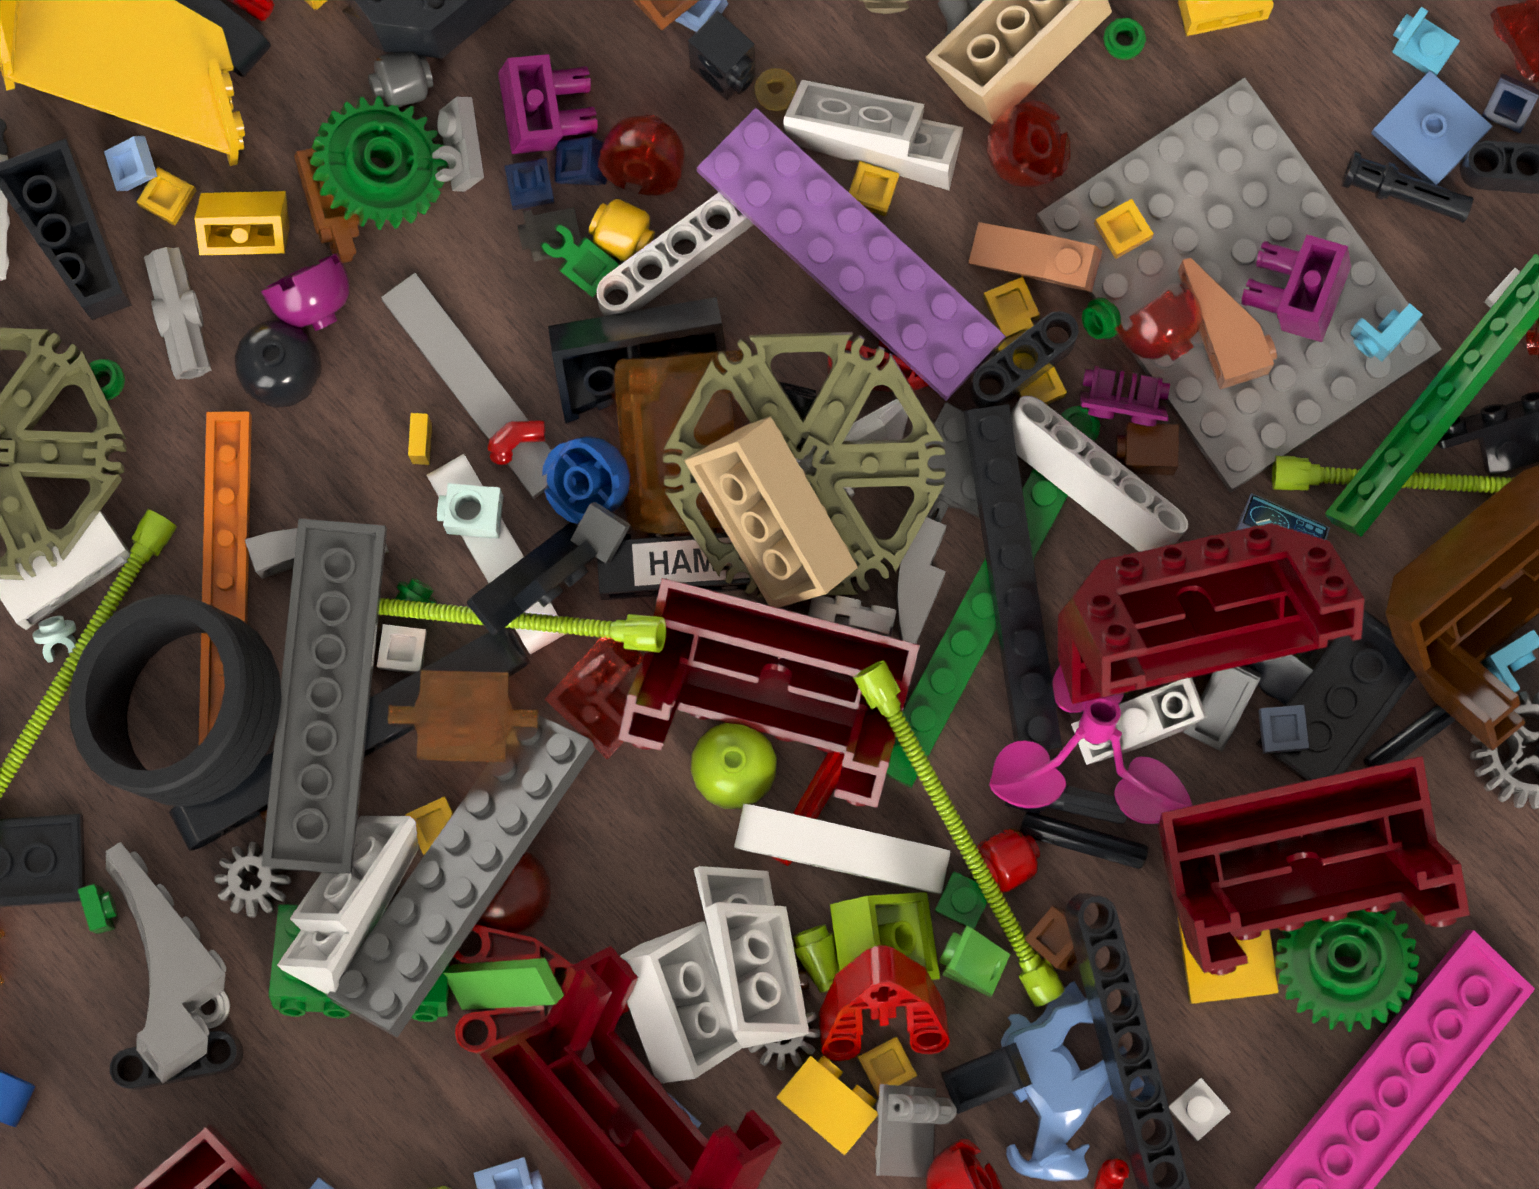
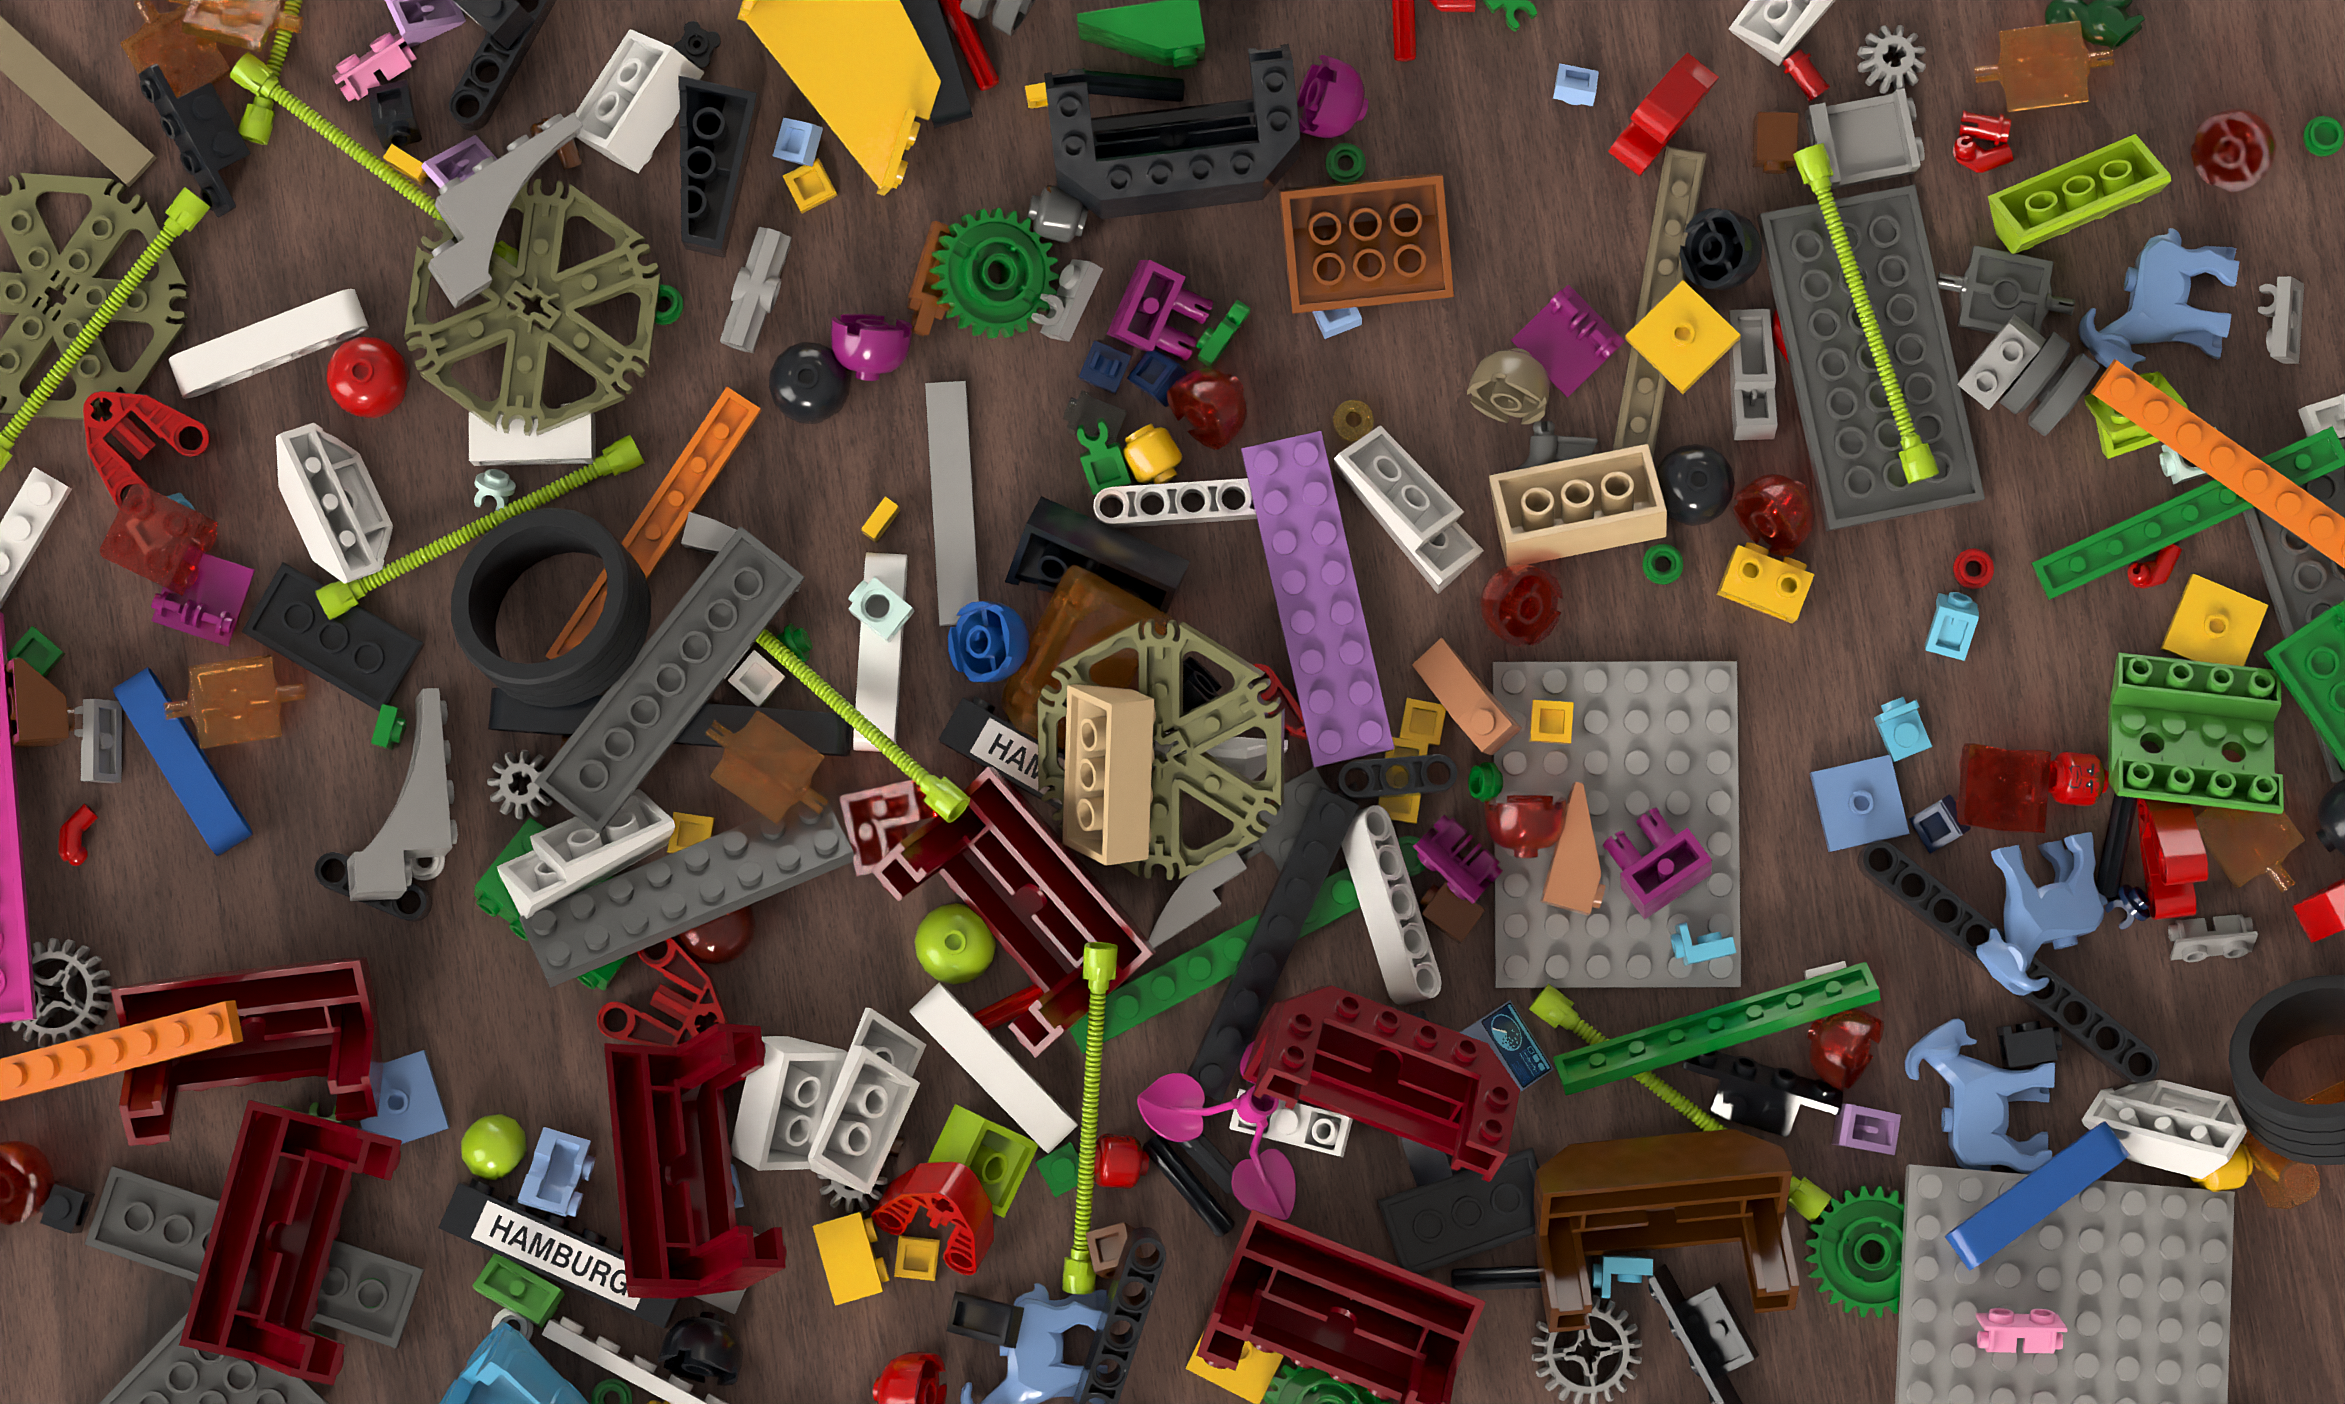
camera: 30 degrees right, 5 degrees up
(242, 223) = (854, 251): yellow brick -> none
(504, 984) = (660, 999): bright green tile -> none
(511, 435) = (954, 565): red arm -> none
(532, 580) = (894, 696): black bracket -> none
(601, 530) = (969, 693): dark grey tile -> none
(611, 99) = (1216, 341): none -> green plate
(722, 56) = (1325, 369): black brick -> none
(818, 955) = (920, 1136): lime cone -> none
(851, 613) = (1124, 891): white plate -> none
(874, 187) = (1376, 552): yellow tile -> none
(907, 1129) = (898, 1318): light grey hinge -> none
(974, 961) = (1035, 1224): bright green slope -> none
(1224, 704) = (1368, 1154): tile -> none
(1283, 729) = (1402, 1204): sand blue plate -> none
(1387, 181) = (1790, 818): black pin -> none

